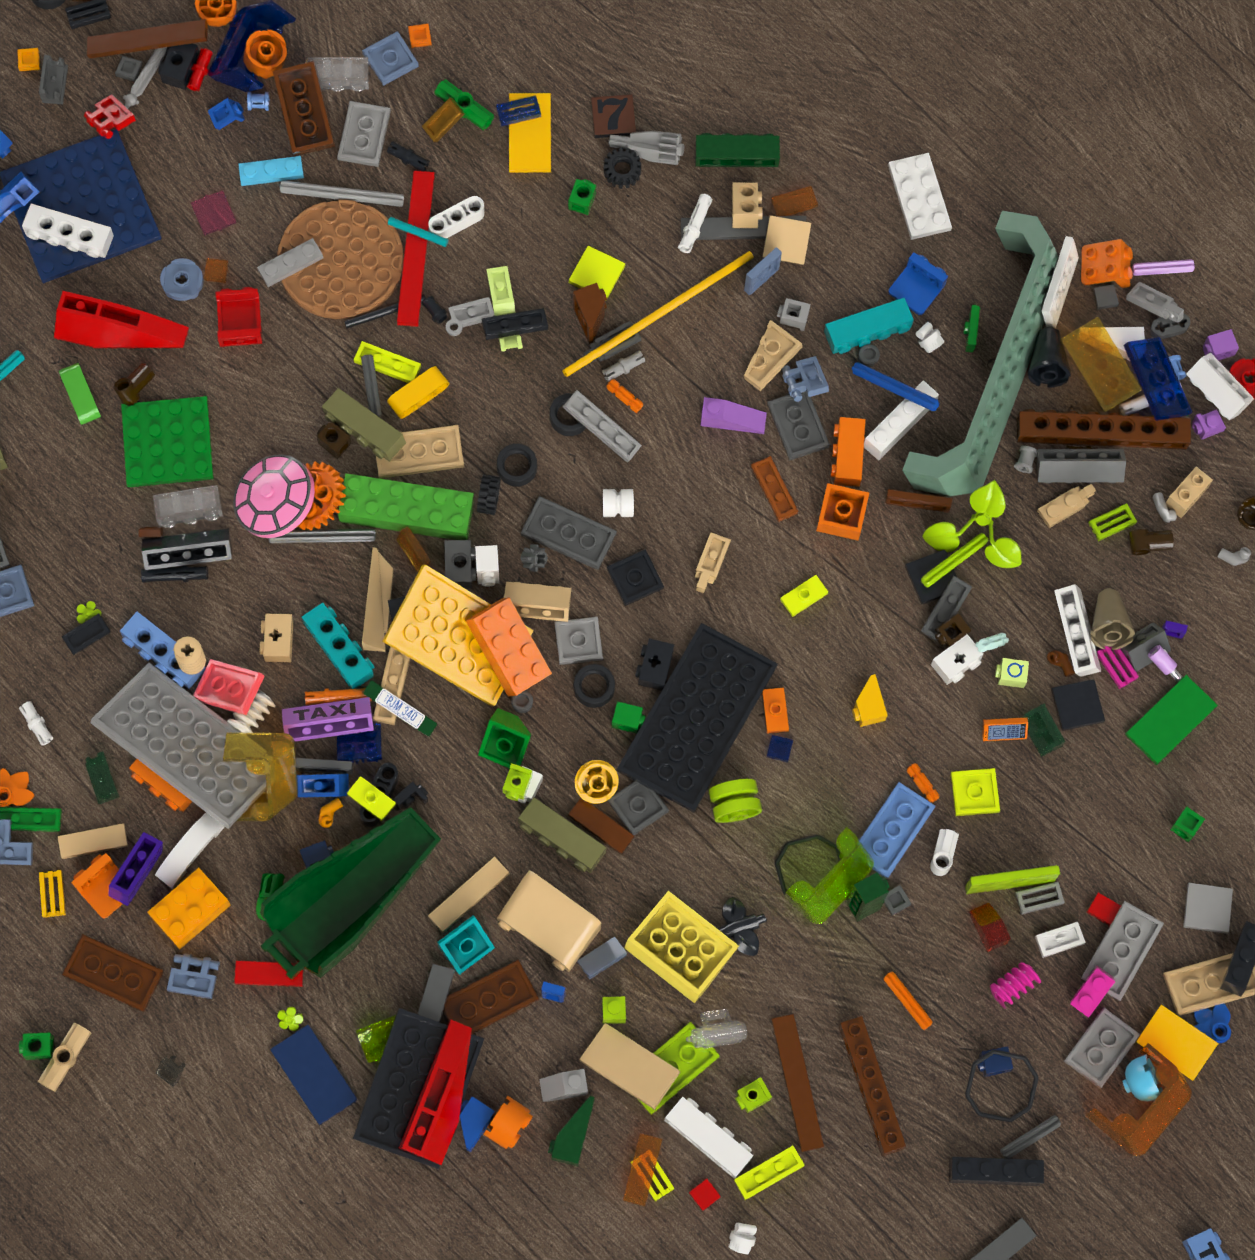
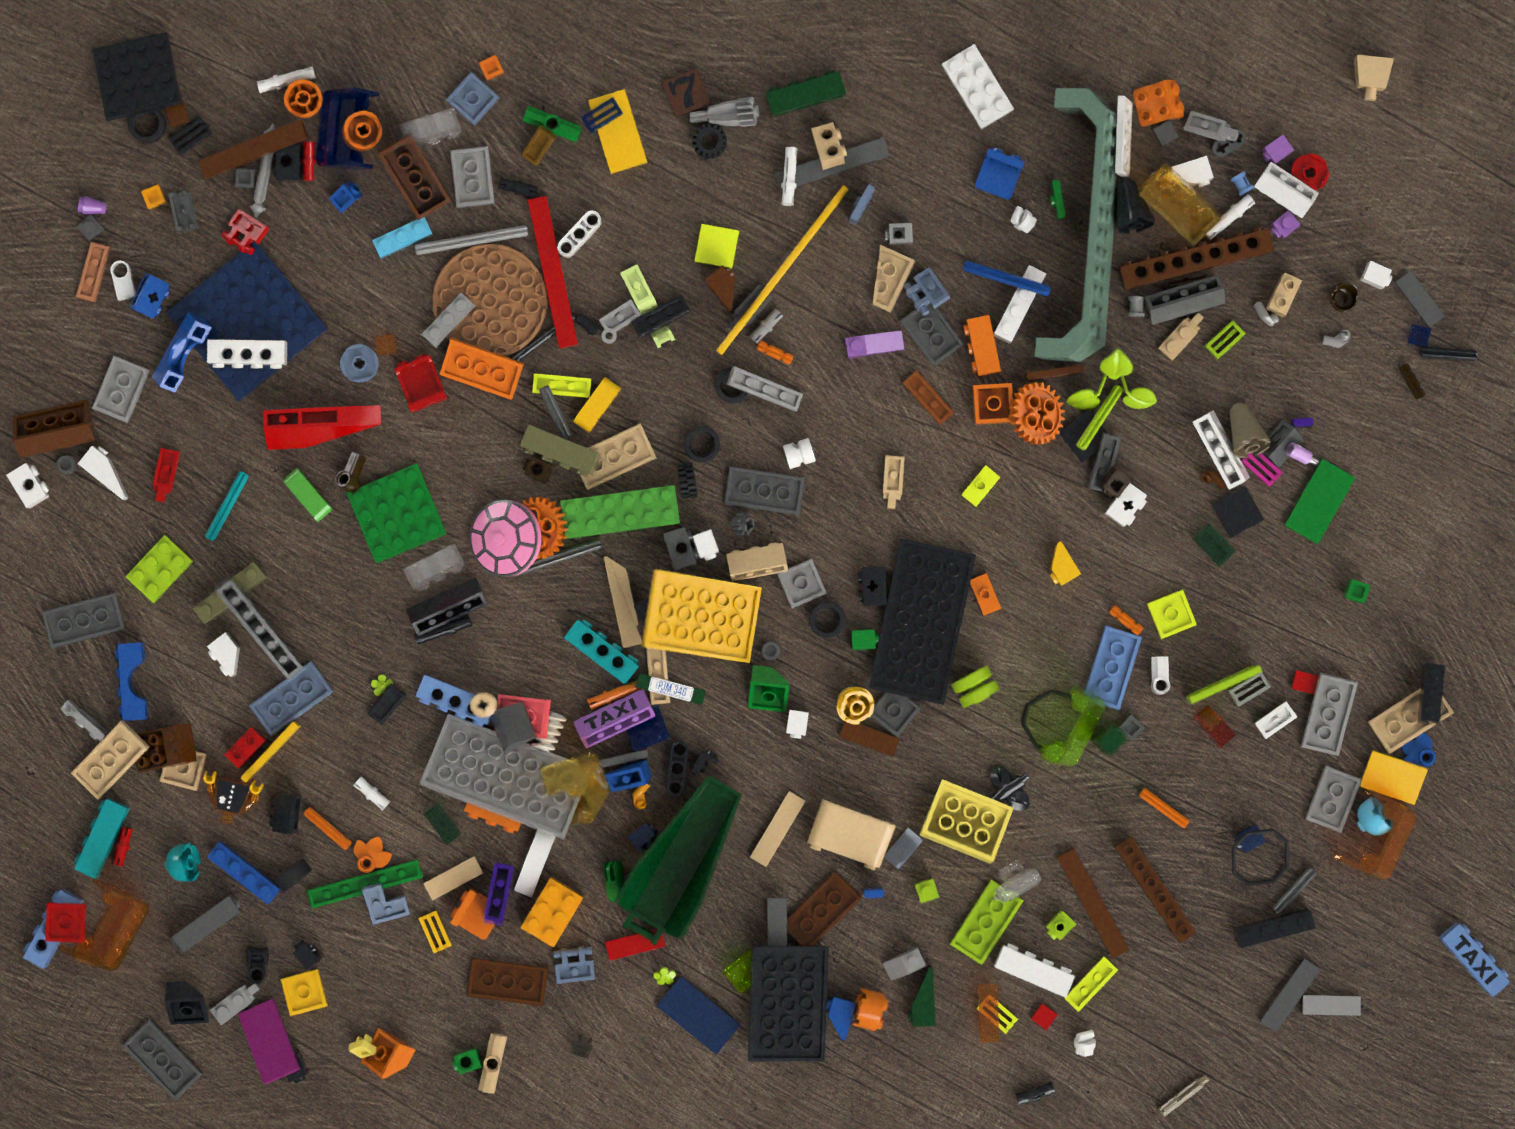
camera: 10 degrees left, 15 degrees up
(150, 532) = (411, 599): reddish brown tile -> none
(213, 213) = (365, 291): clear pink piece -> none
(213, 692) = (513, 726): none -> dark grey slope
(258, 101) = (369, 175): medium blue bush -> none
(282, 648) = (556, 666): tan brick -> none
(308, 320) = (481, 368): none -> orange plate
(371, 798) = (673, 777): neon yellow plate -> none
(412, 549) = (638, 548): clear orange tile -> none
(418, 231) = (550, 258): teal bar -> none
(440, 1099) = (809, 1008): red wedge -> none
(465, 945) = (789, 873): teal slope -> none
(508, 647) = (746, 613): orange brick -> none
(520, 773) = (790, 721): lime brick -> none
(561, 835) = (840, 757): olive brick -> none
(578, 203) = (682, 187): green brick -> none
(629, 1066) = (953, 932): tan tile -> none
(635, 577) = (832, 513): black tile -> none
(779, 748) = (998, 626): clear blue tile -> none
(789, 237) = (873, 166): tan tile -> none
(794, 201) = (869, 126): clear orange tile -> none
(868, 326) = (967, 224): teal brick -> none
(868, 355) = (974, 250): dark grey tile -> none
(887, 534) = (1030, 418): none -> orange gear
(992, 642) = (1151, 482): light aqua axle -> none
(1005, 729) = (1182, 553): tile -> none
(1012, 672) = (1175, 502): yellowish green brick -> none
(1014, 983) = (1248, 769): dark pink piece -> none
(1092, 991) = (1314, 757): dark pink brick -> none
(1144, 542) = (1259, 349): dark brown piece -> none
(1157, 378) = (1231, 202): clear blue tile -> none
(1163, 267) = (1208, 90): lavender axle -> none
(1208, 908) = (1390, 655): light grey tile -> none

